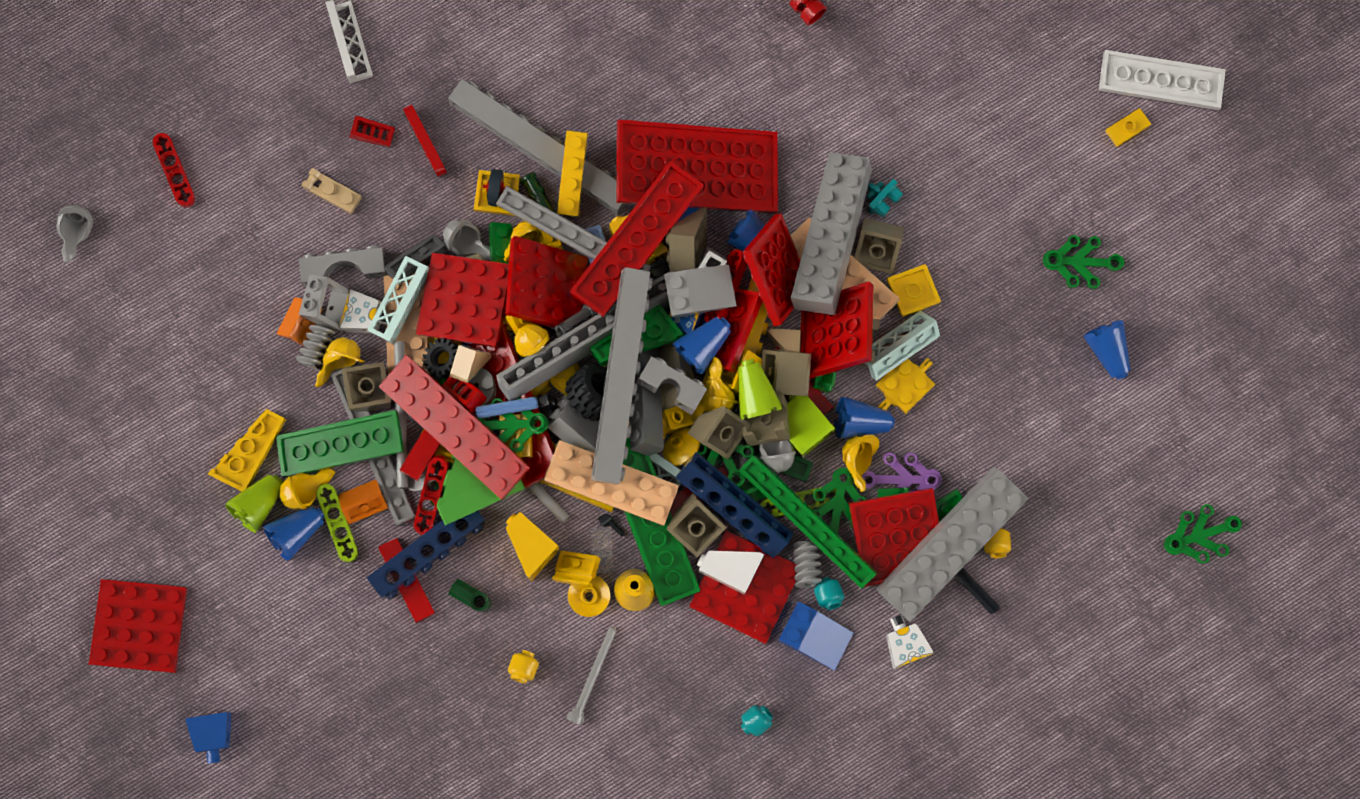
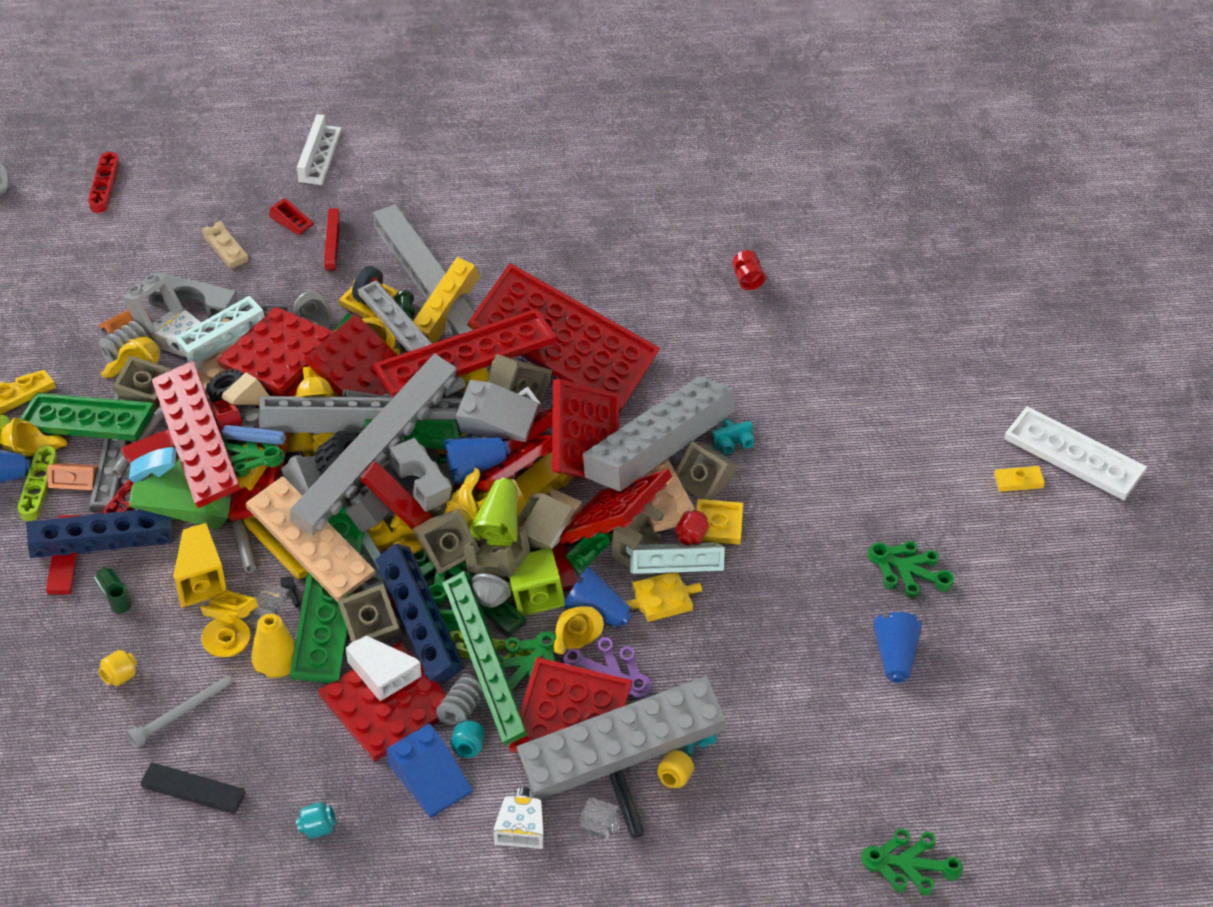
camera: 30 degrees right, 30 degrees down
(441, 477) = (155, 462): none -> medium azure slope
(644, 737) = (193, 788): none -> black tile
(663, 415) = (394, 496): none -> red tile
(903, 315) = (692, 527): none -> red head
(963, 612) = (599, 818): none -> clear brick

